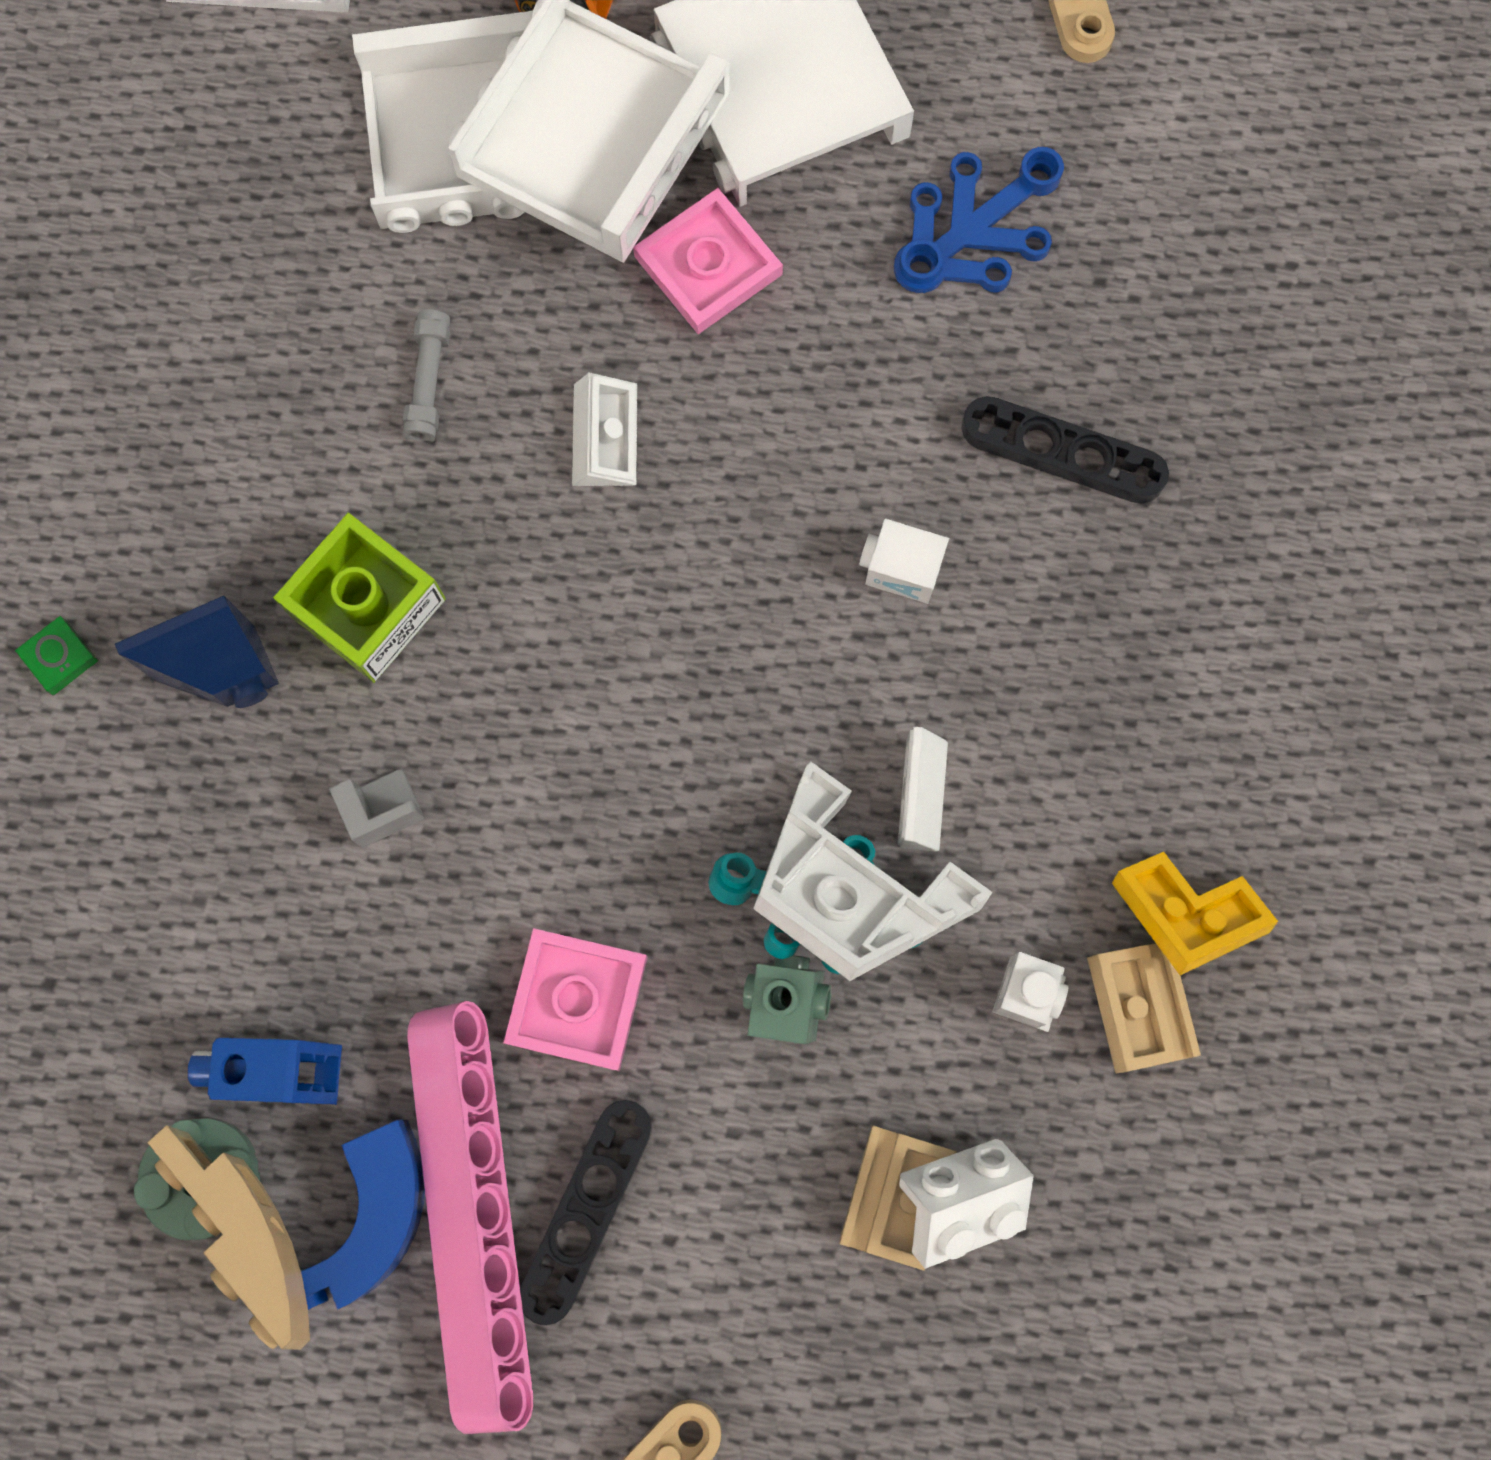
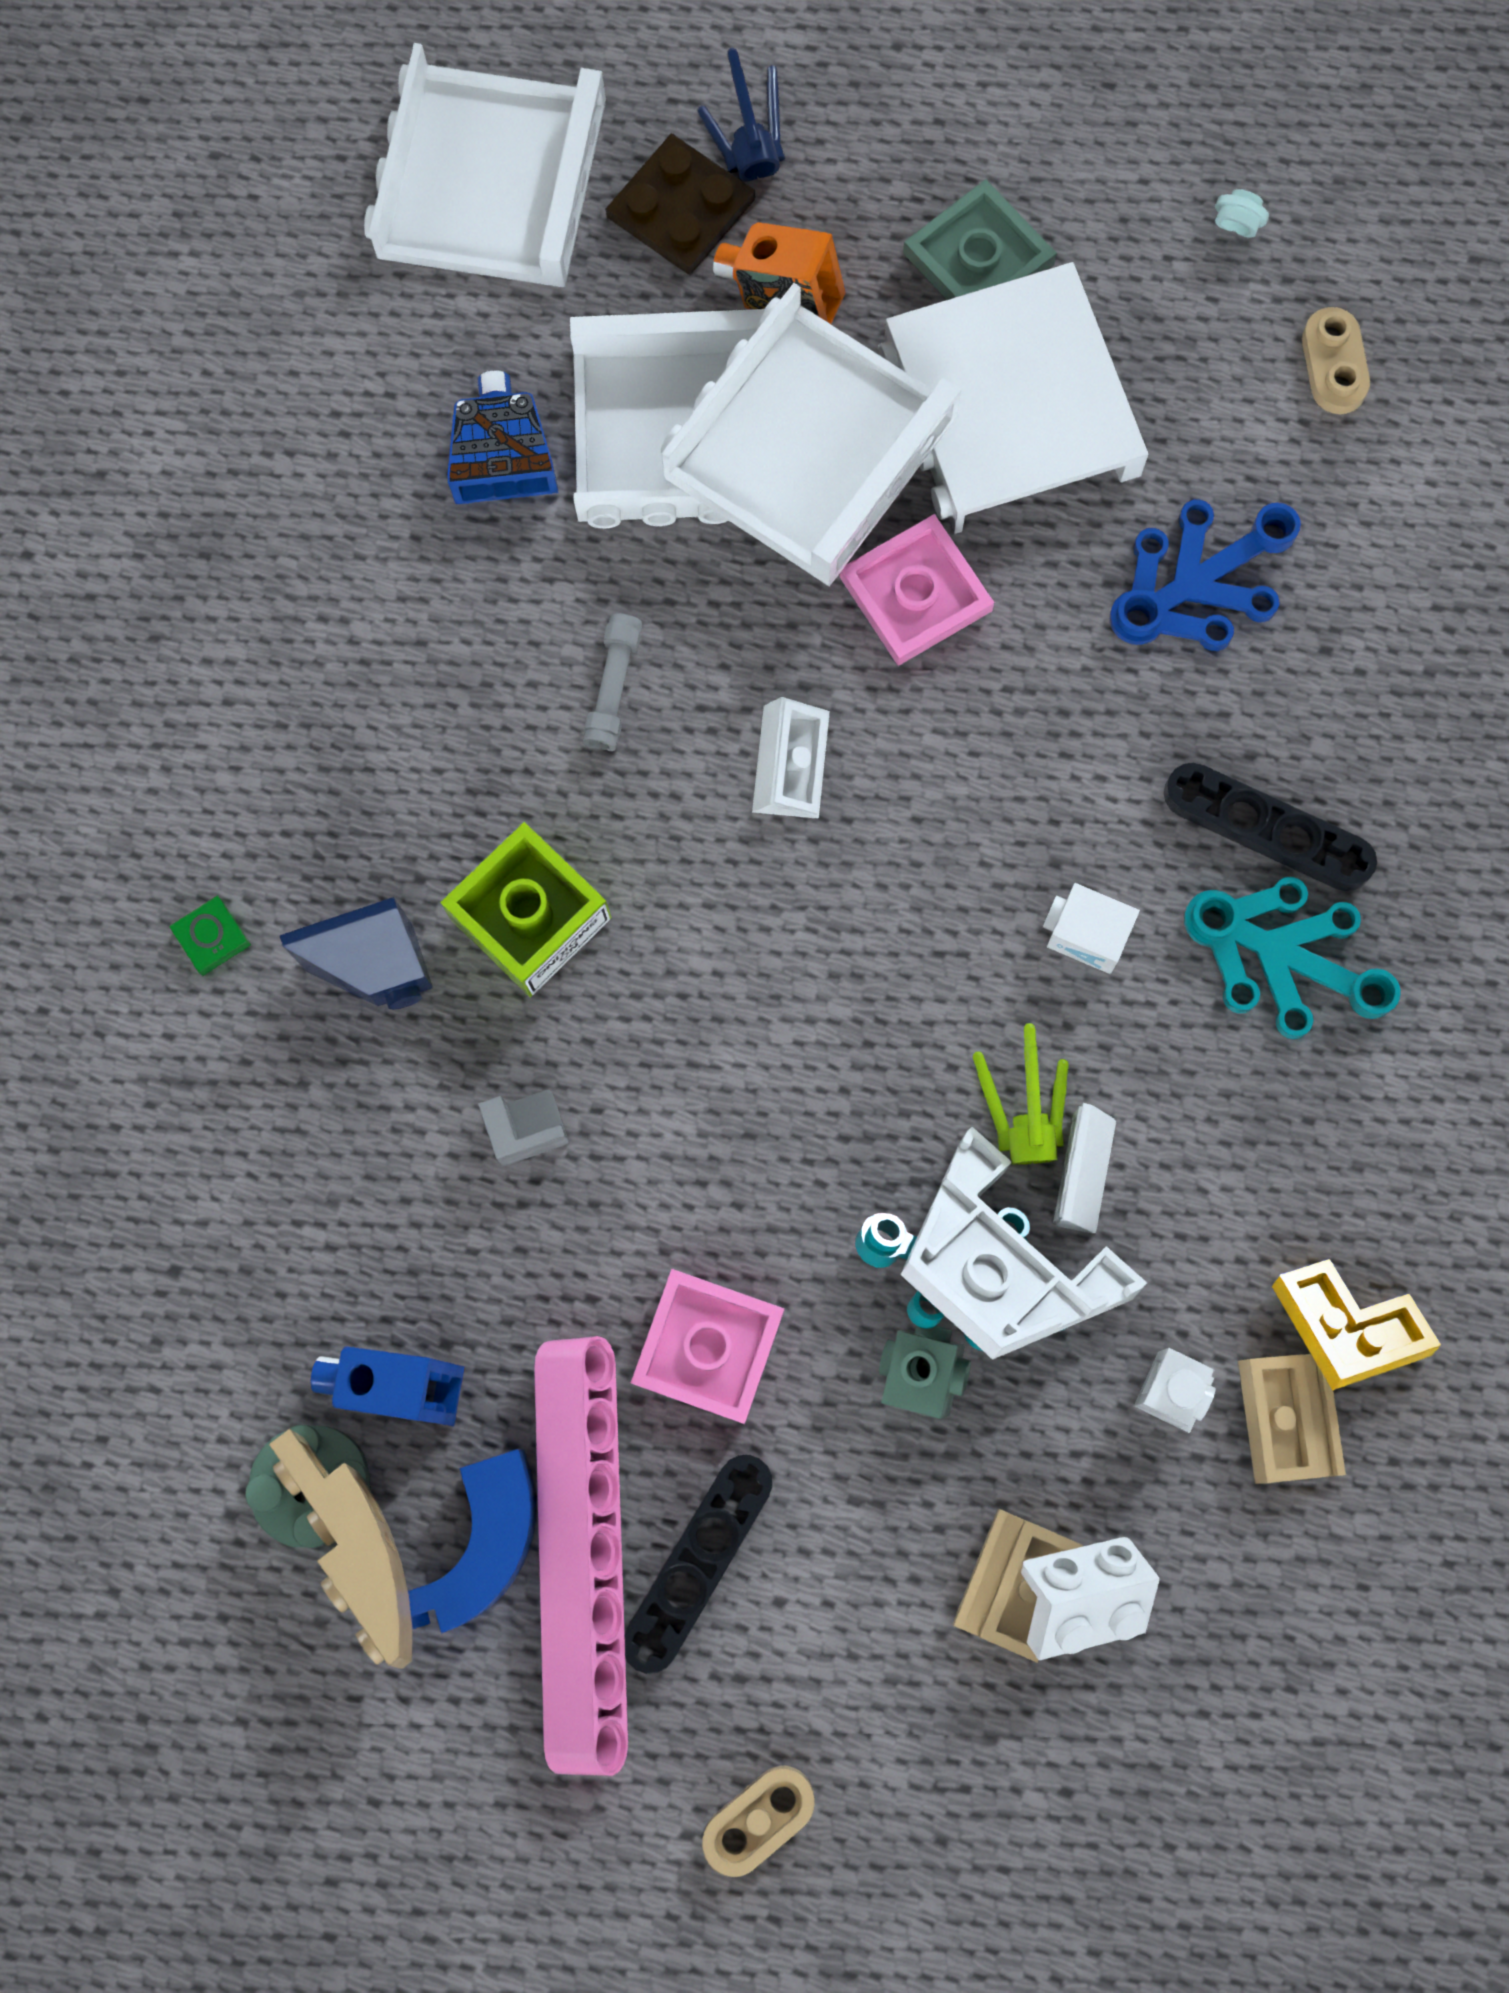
camera: 10 degrees right, 0 degrees up
(295, 163) = (498, 445): none -> torso
(868, 764) = (1032, 1134): none -> lime plant
(1087, 566) = (1281, 950): none -> teal plant

